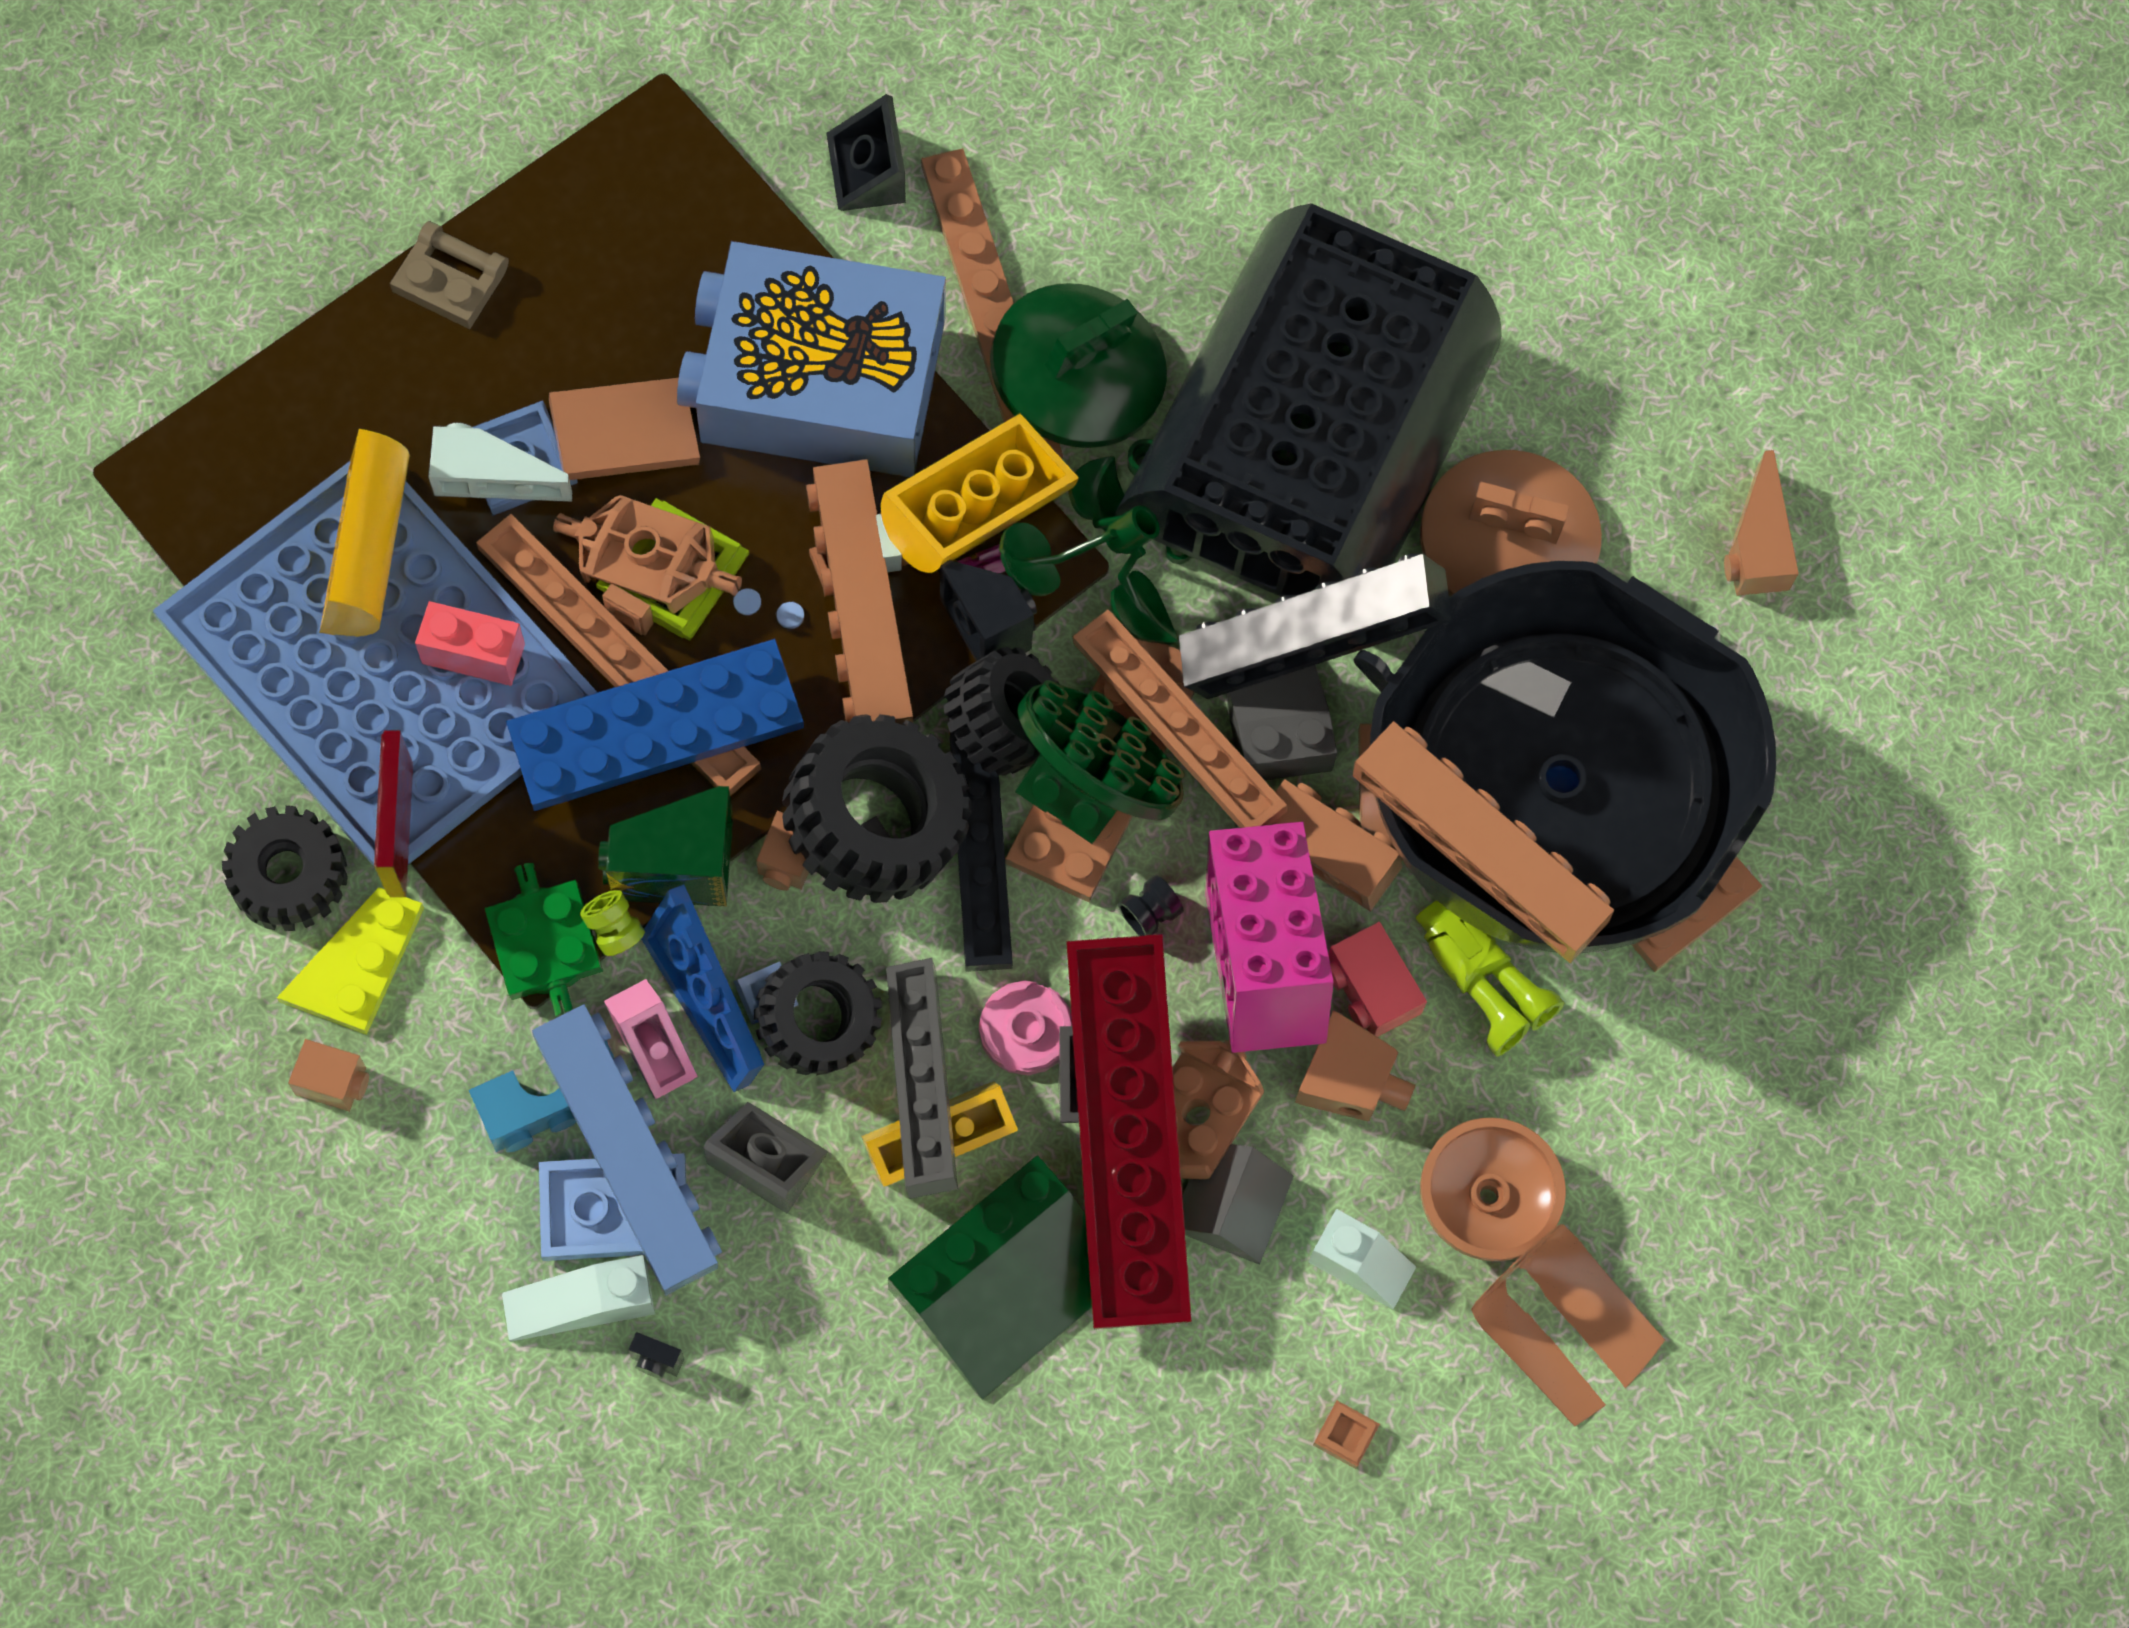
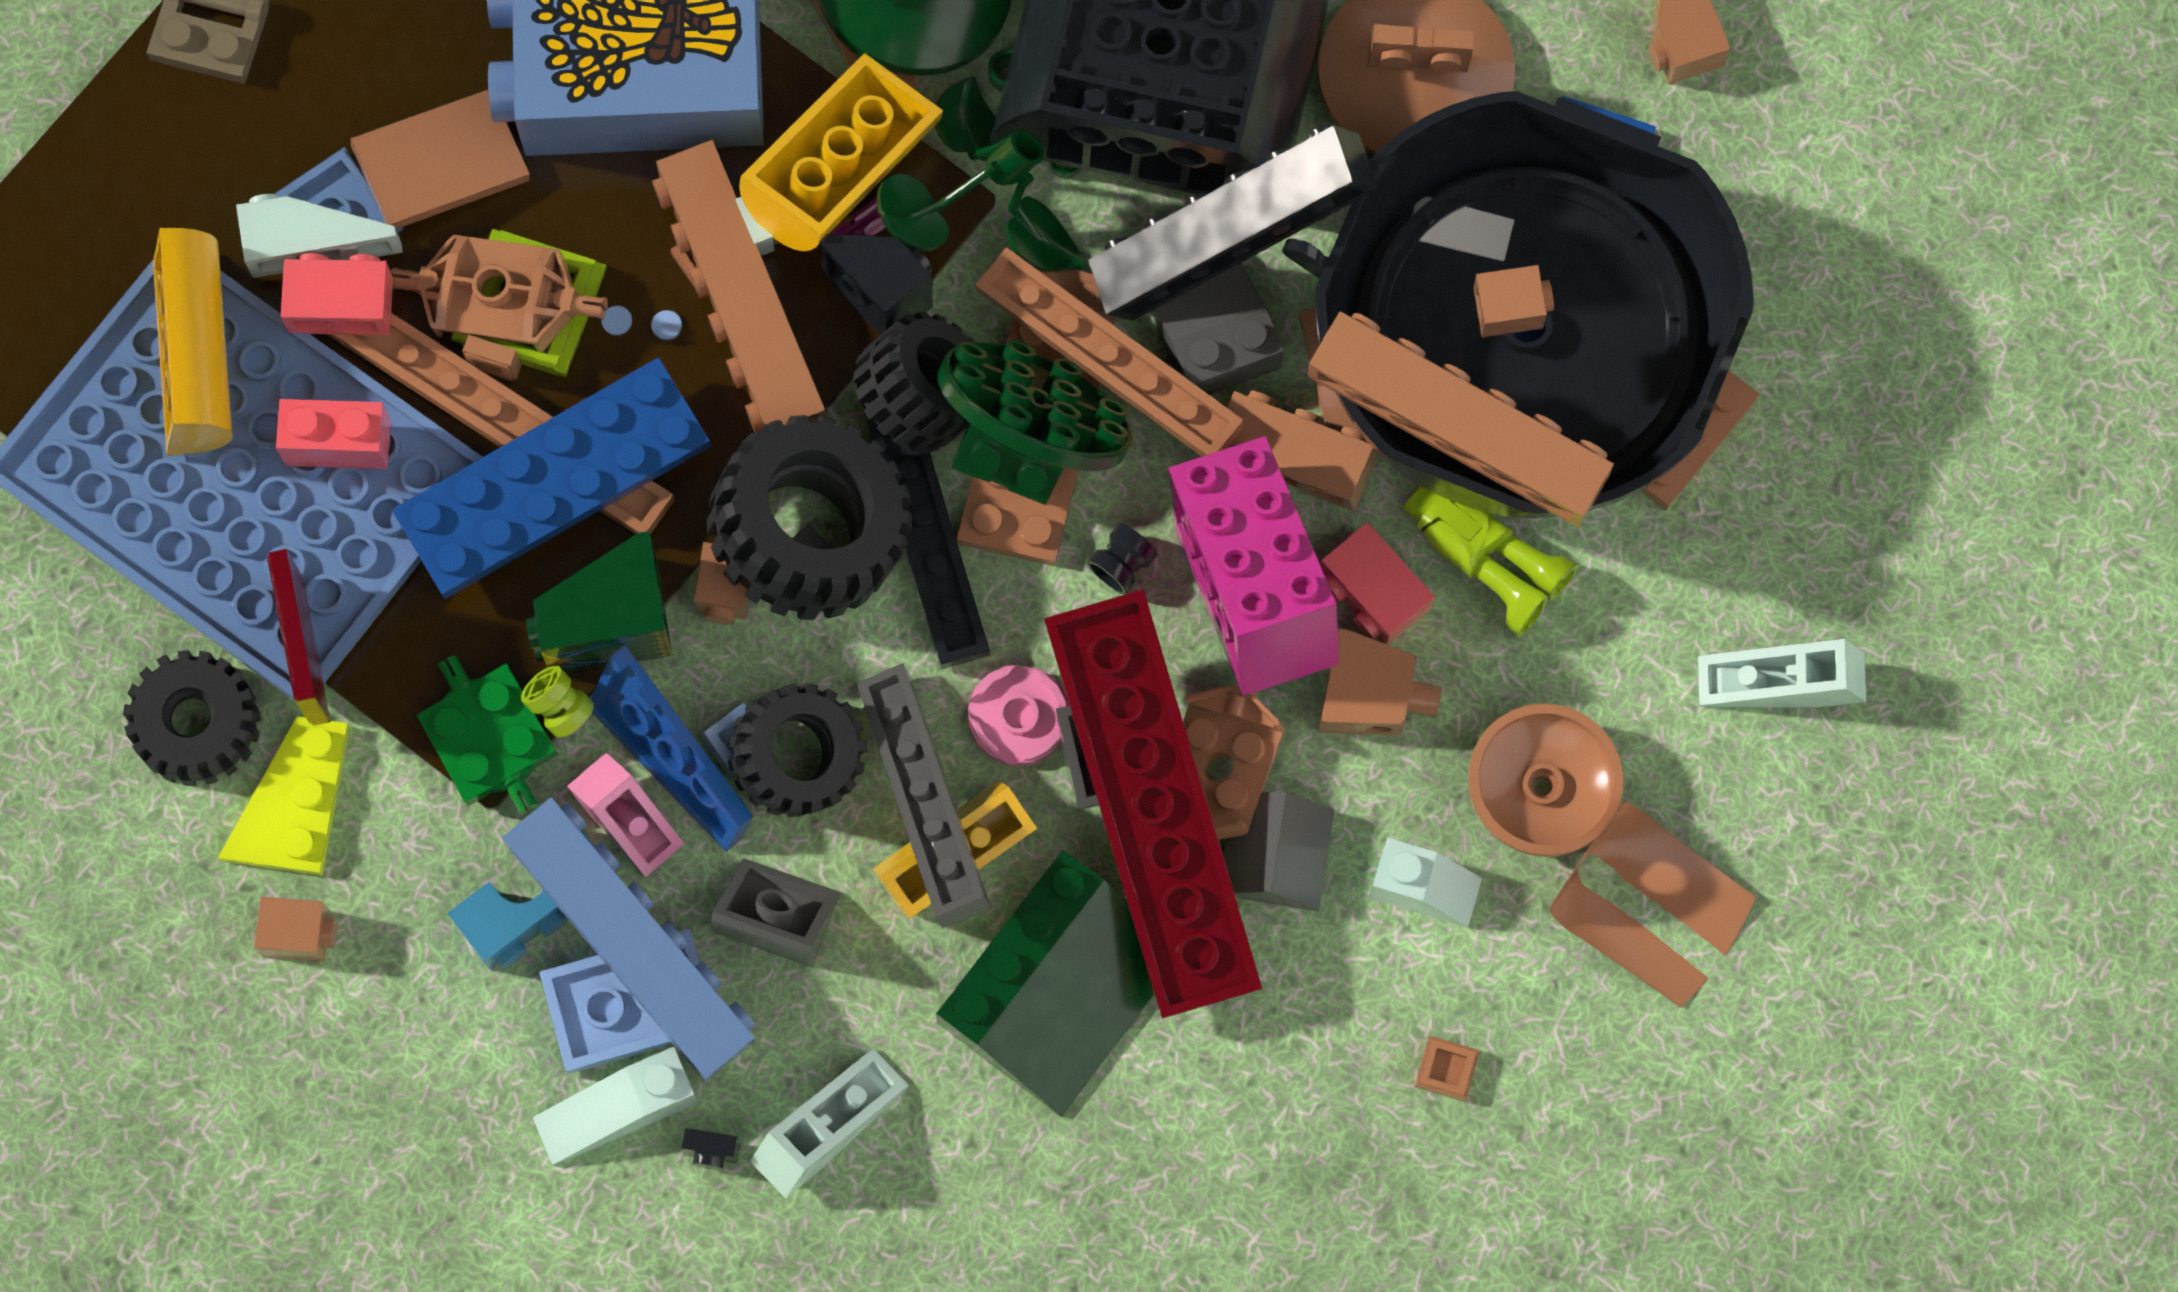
camera: 10 degrees left, 5 degrees up
(503, 524) = (337, 295): none -> coral brick
(766, 1357) = (827, 1123): none -> light aqua slope
(1552, 746) = (1512, 300): none -> nougat brick
(1733, 1144) = (1784, 676): none -> light aqua slope

